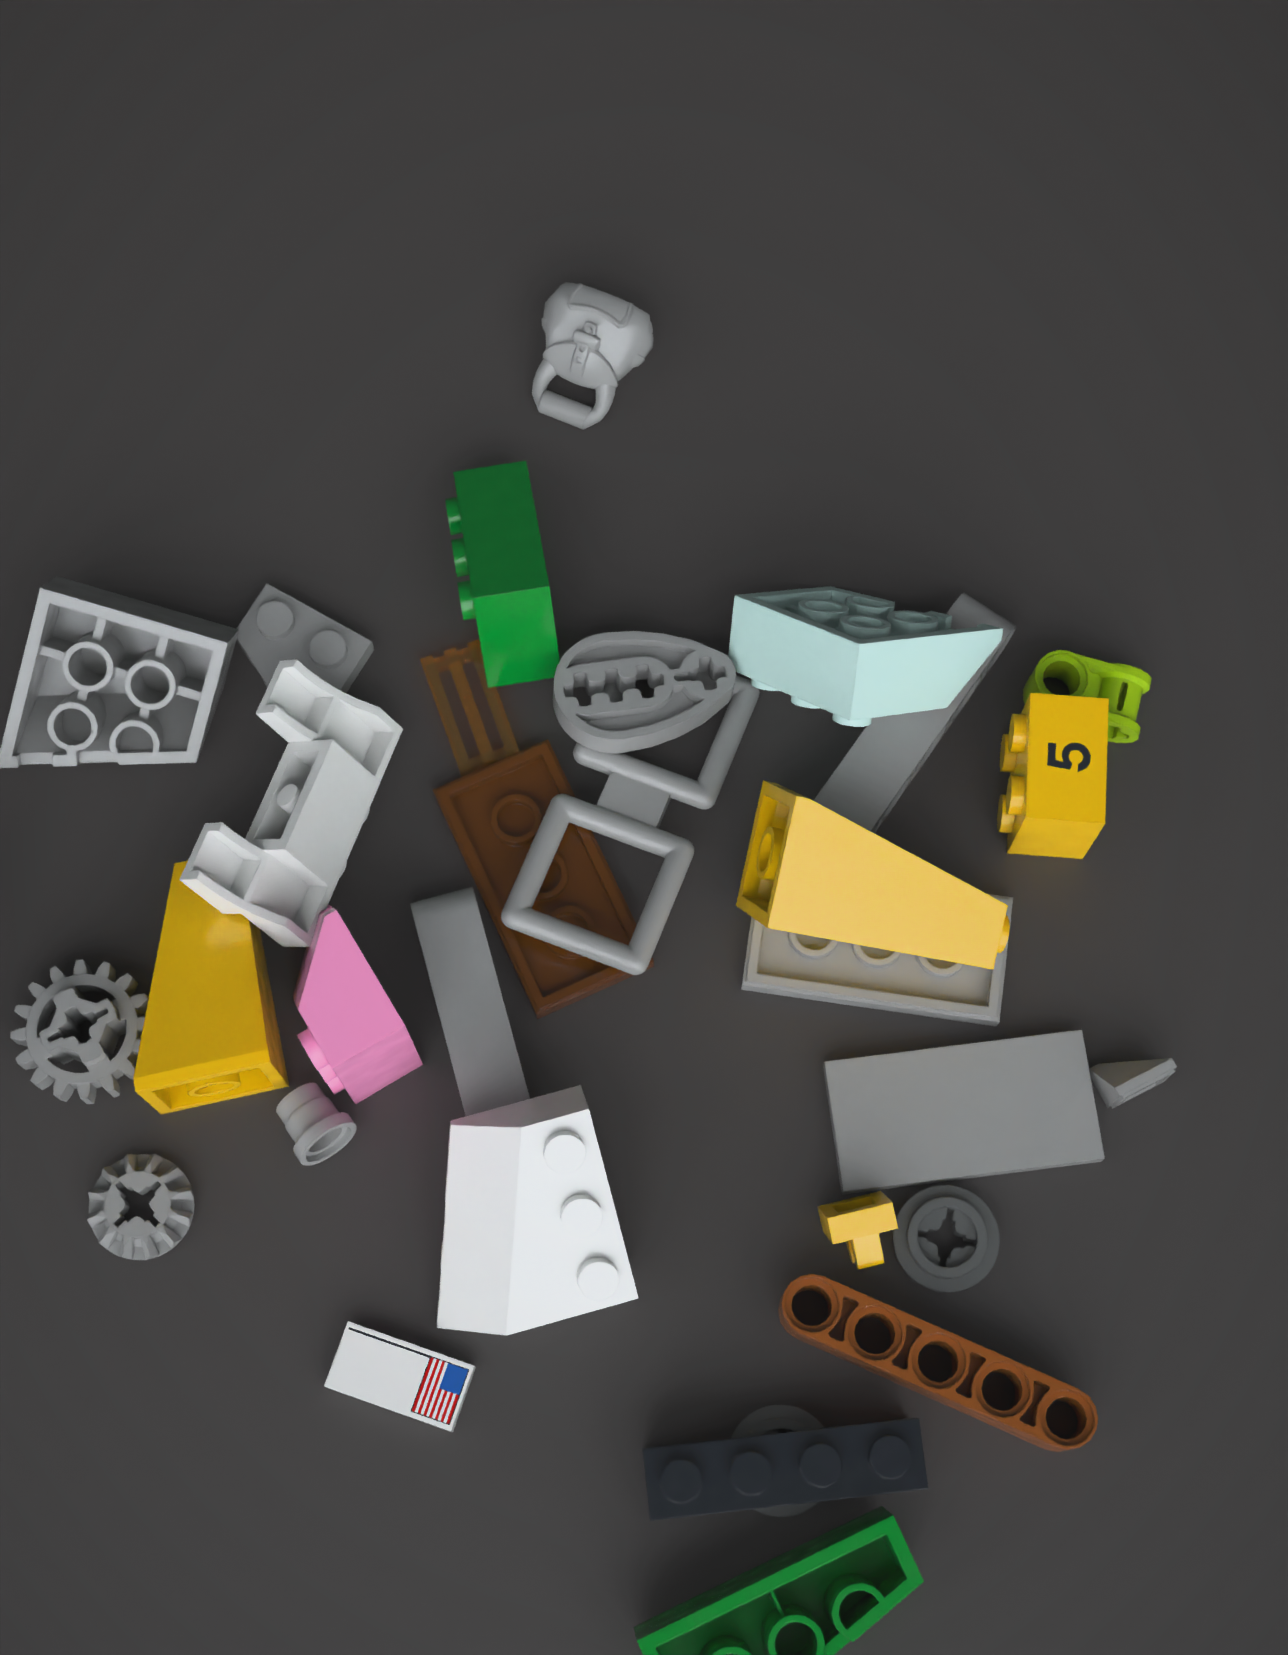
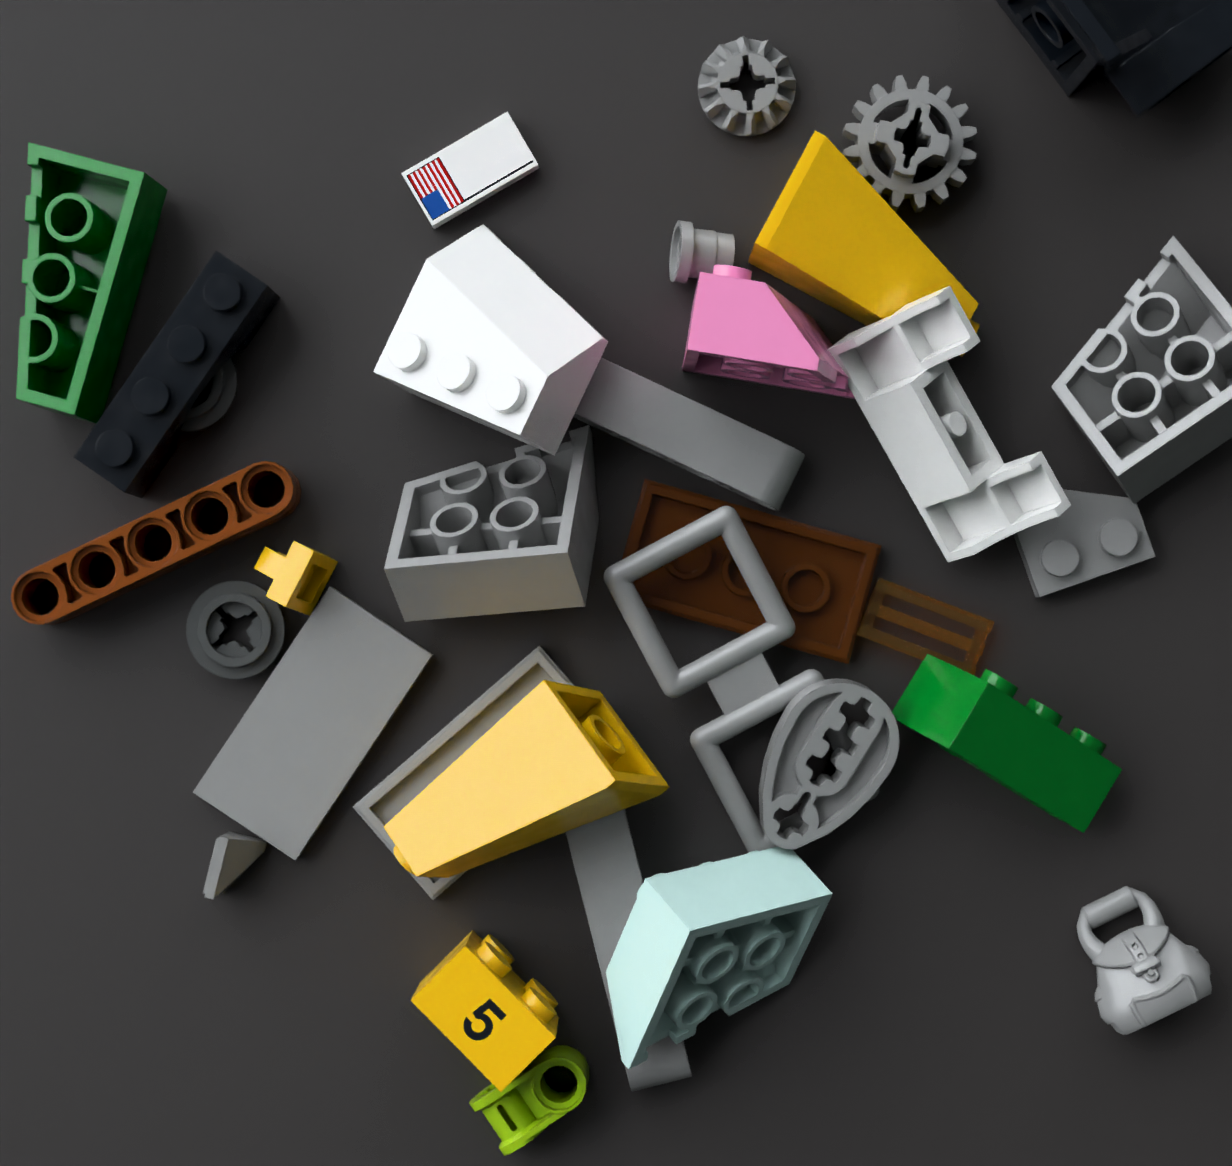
camera: 130 degrees right, 15 degrees up
(686, 1088) = (497, 535): none -> light grey wedge

